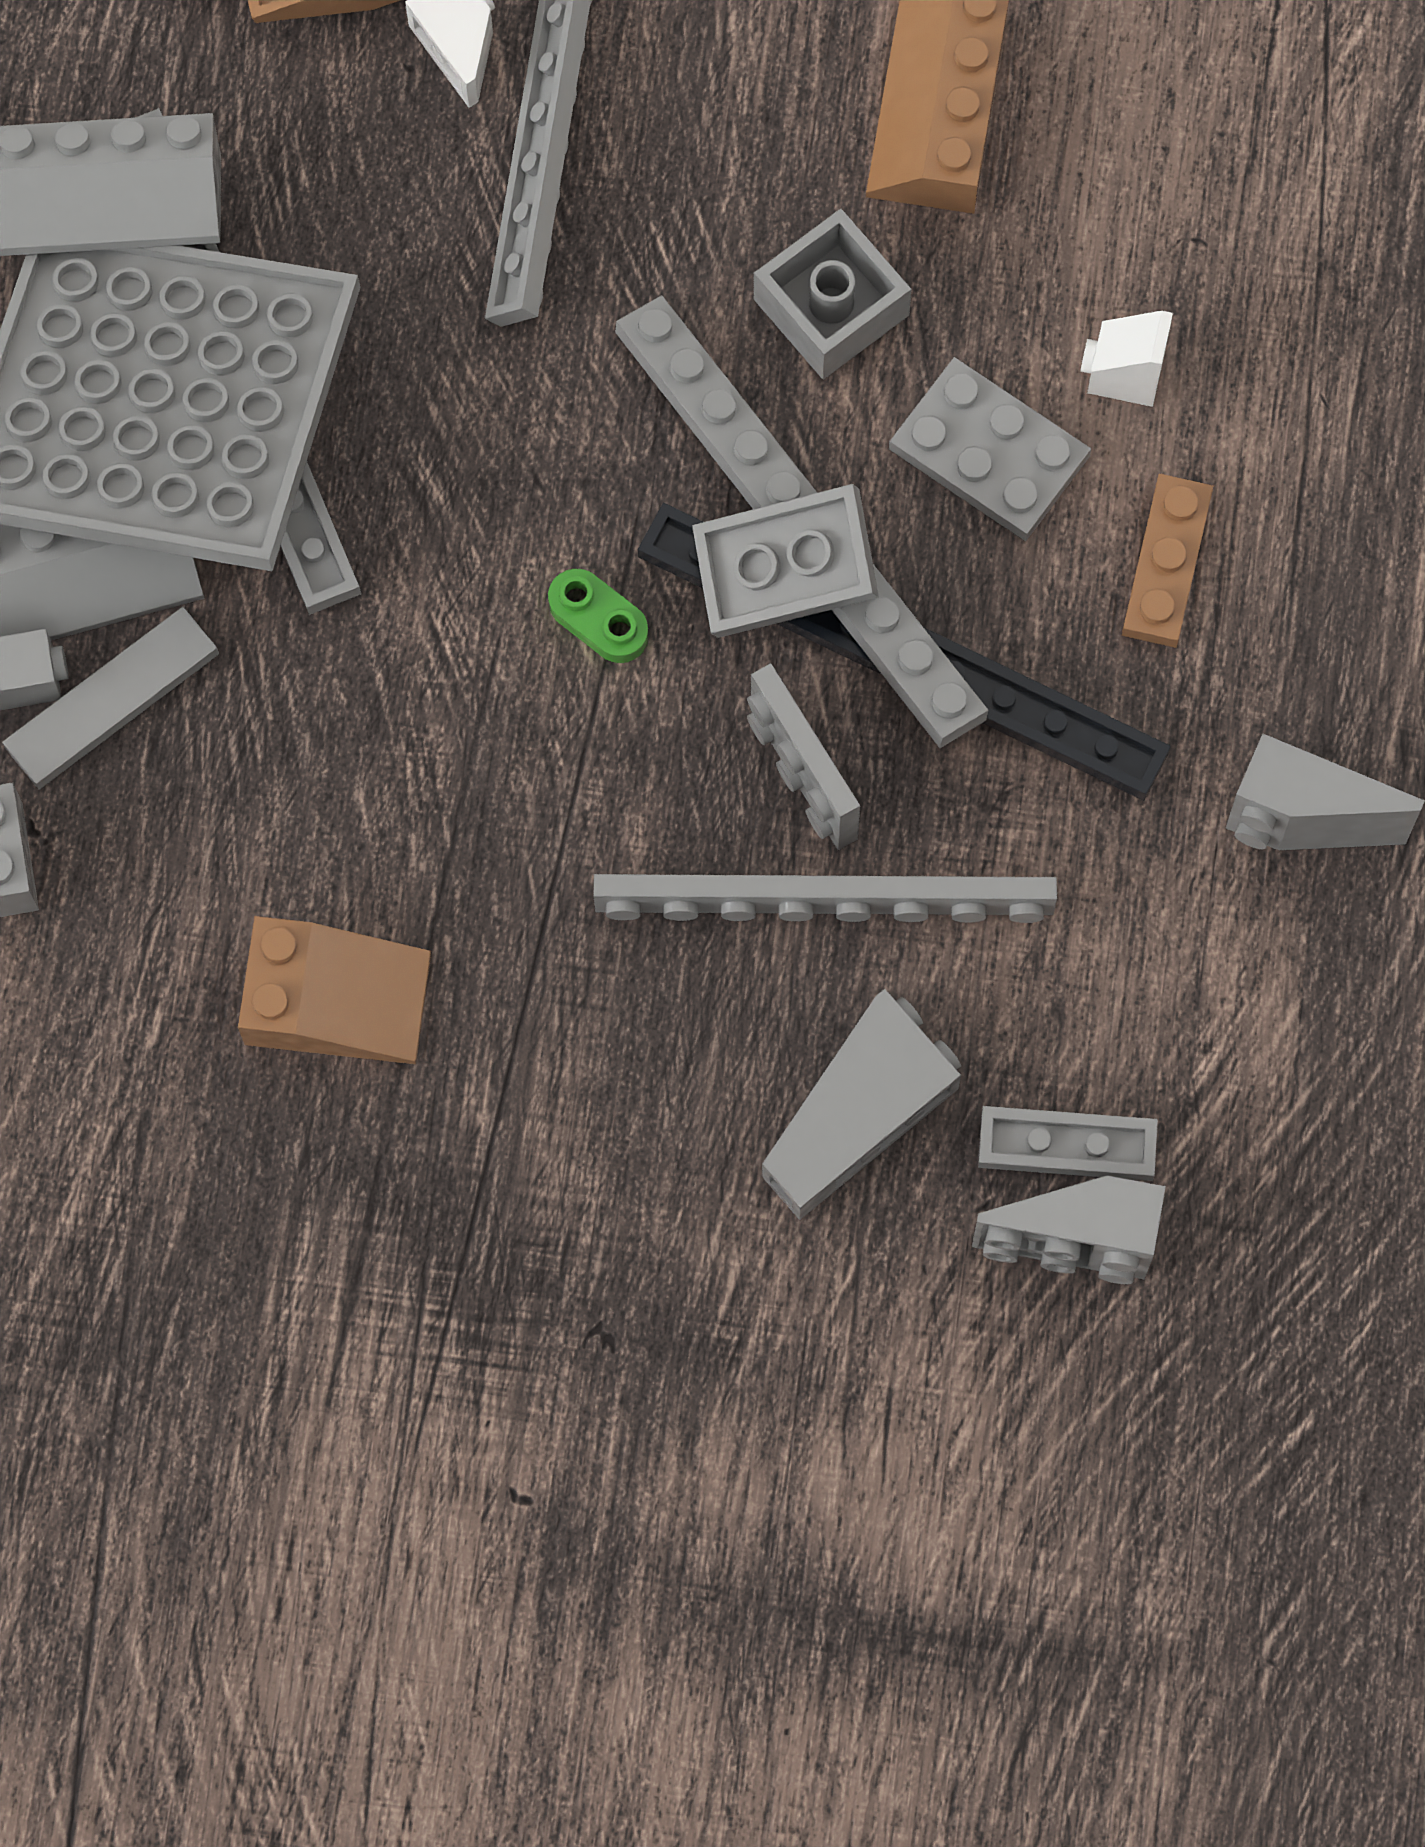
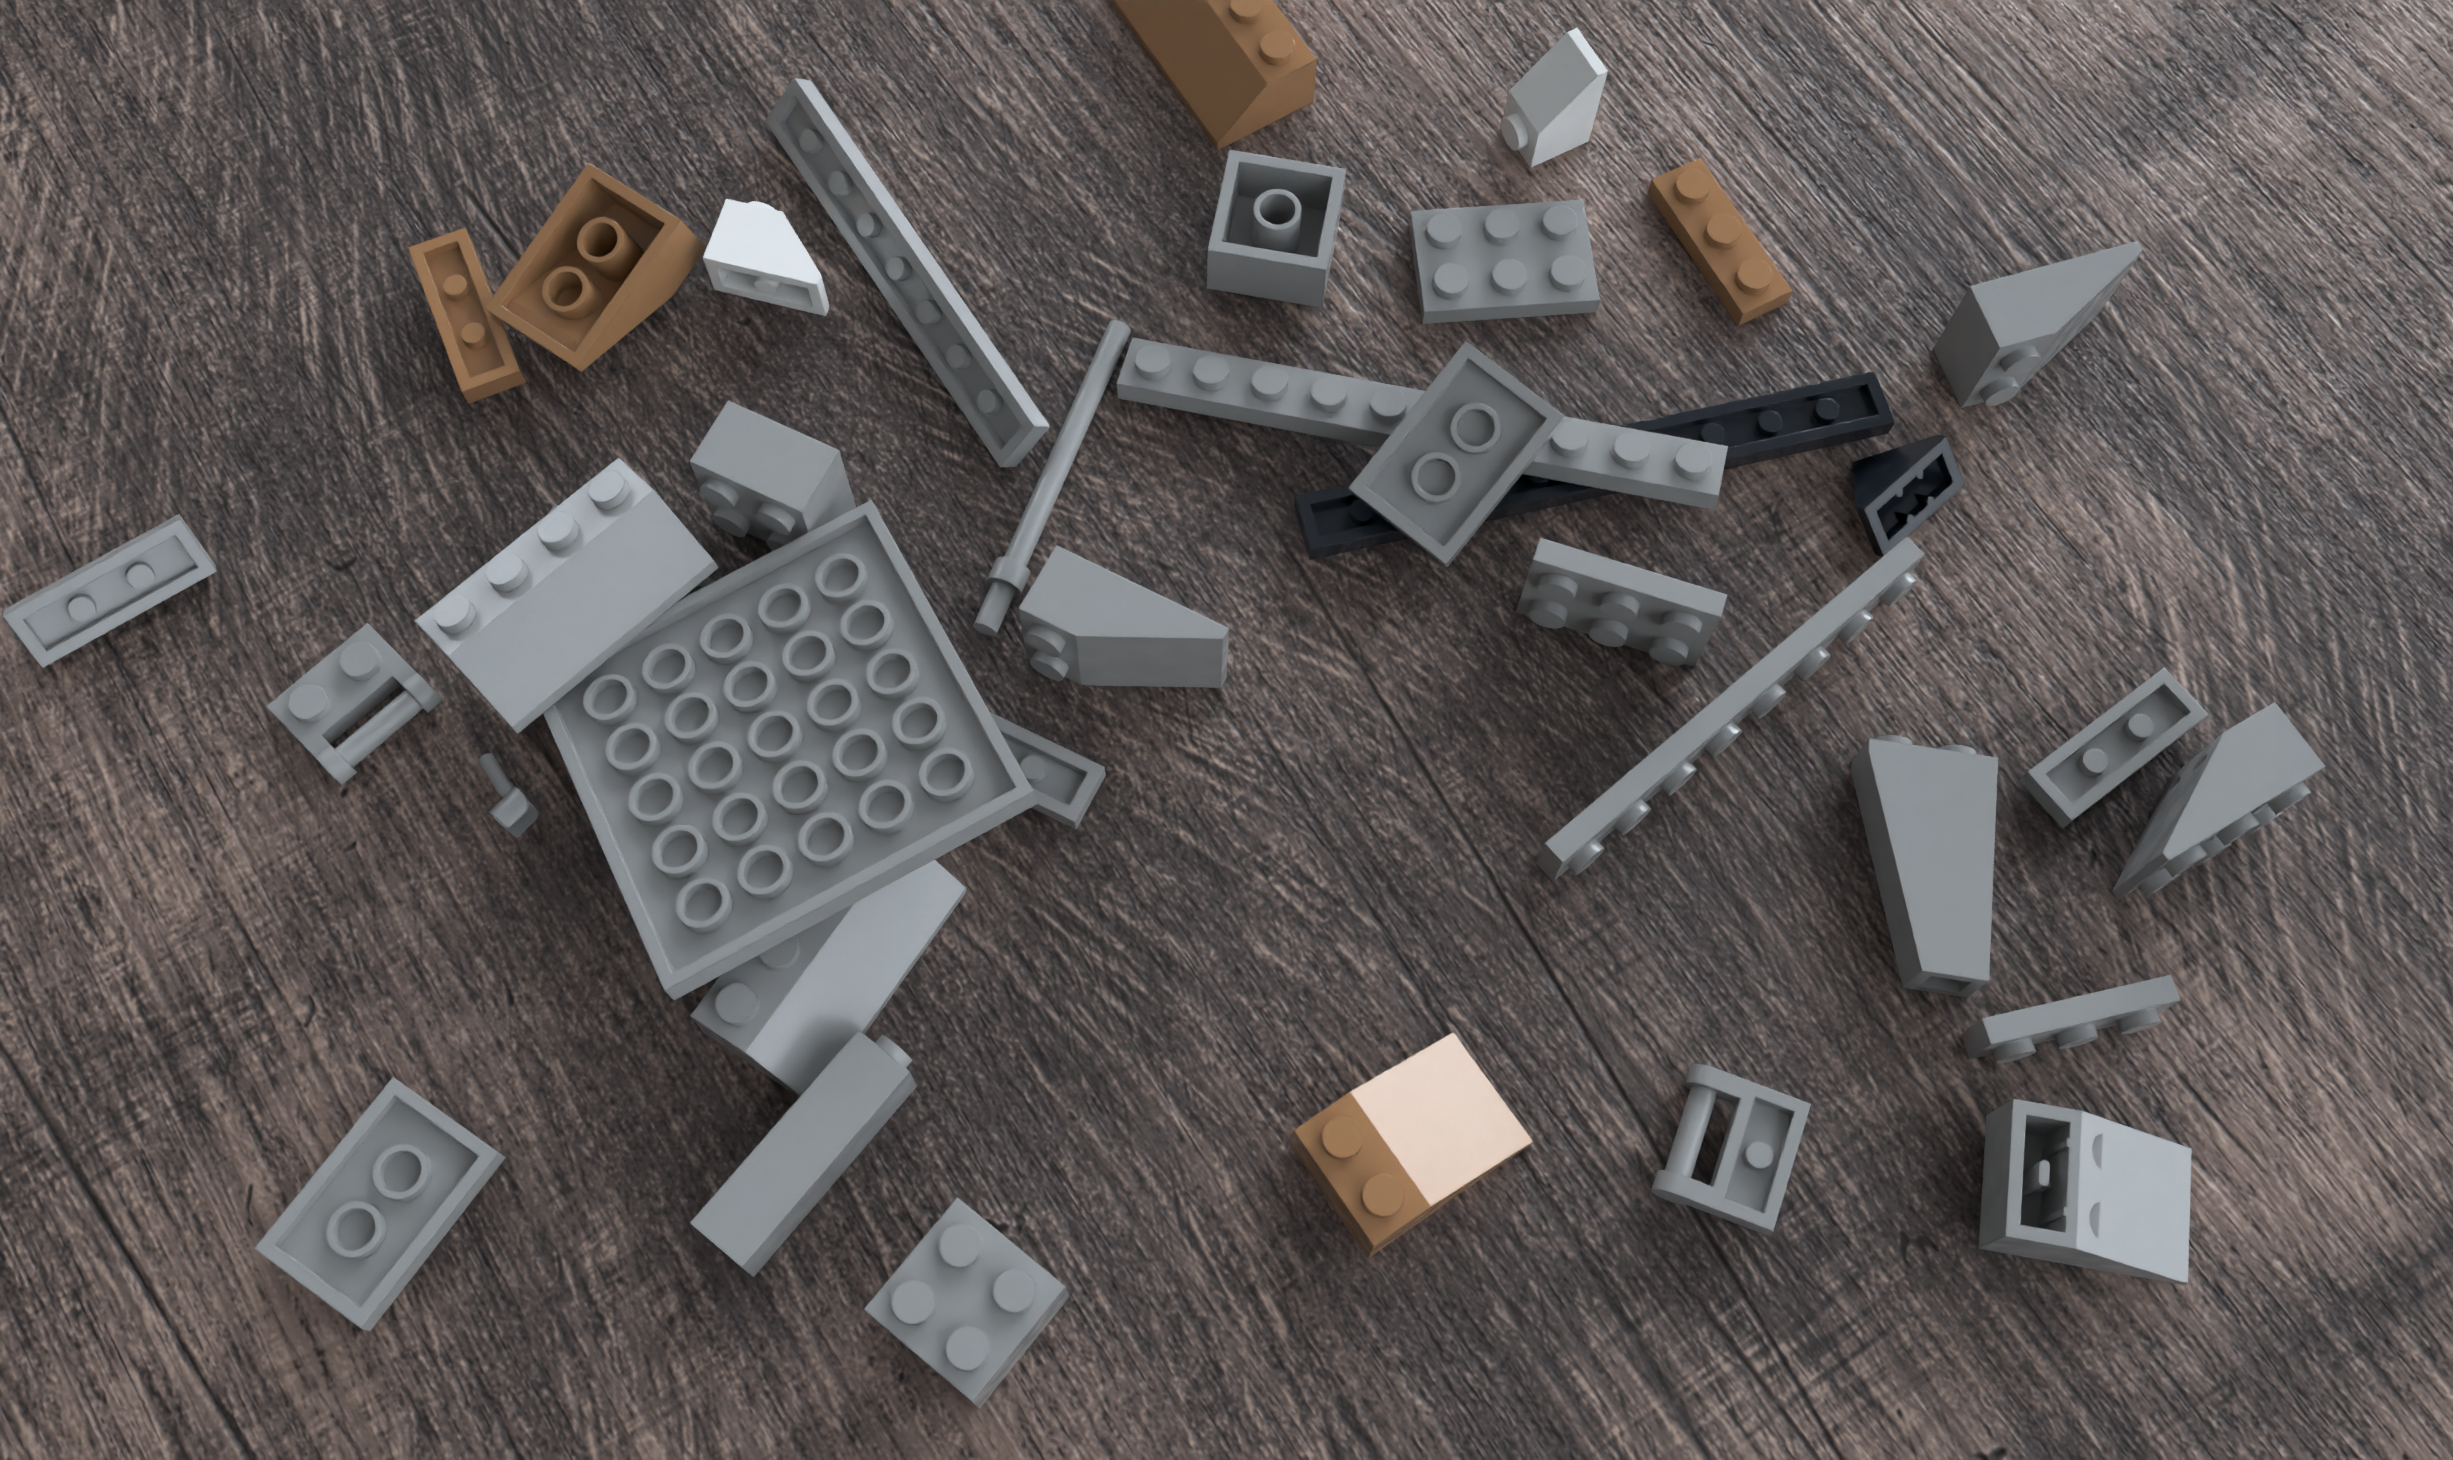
camera: 45 degrees left, 5 degrees down
(110, 698) = (963, 1049): light grey tile -> none
(306, 206) = (769, 478): none -> light grey brick
(422, 401) = (1011, 571): none -> light grey bar
(436, 495) = (1115, 632): none -> light grey slope
(544, 1188) = (1753, 1155): none -> light grey plate
(596, 614) = (1323, 637): bright green plate -> none
(737, 1395) = (2085, 1192): none -> light grey slope
(841, 1285) = (2071, 1020): none -> light grey plate
(1107, 848) = (1904, 489): none -> black slope

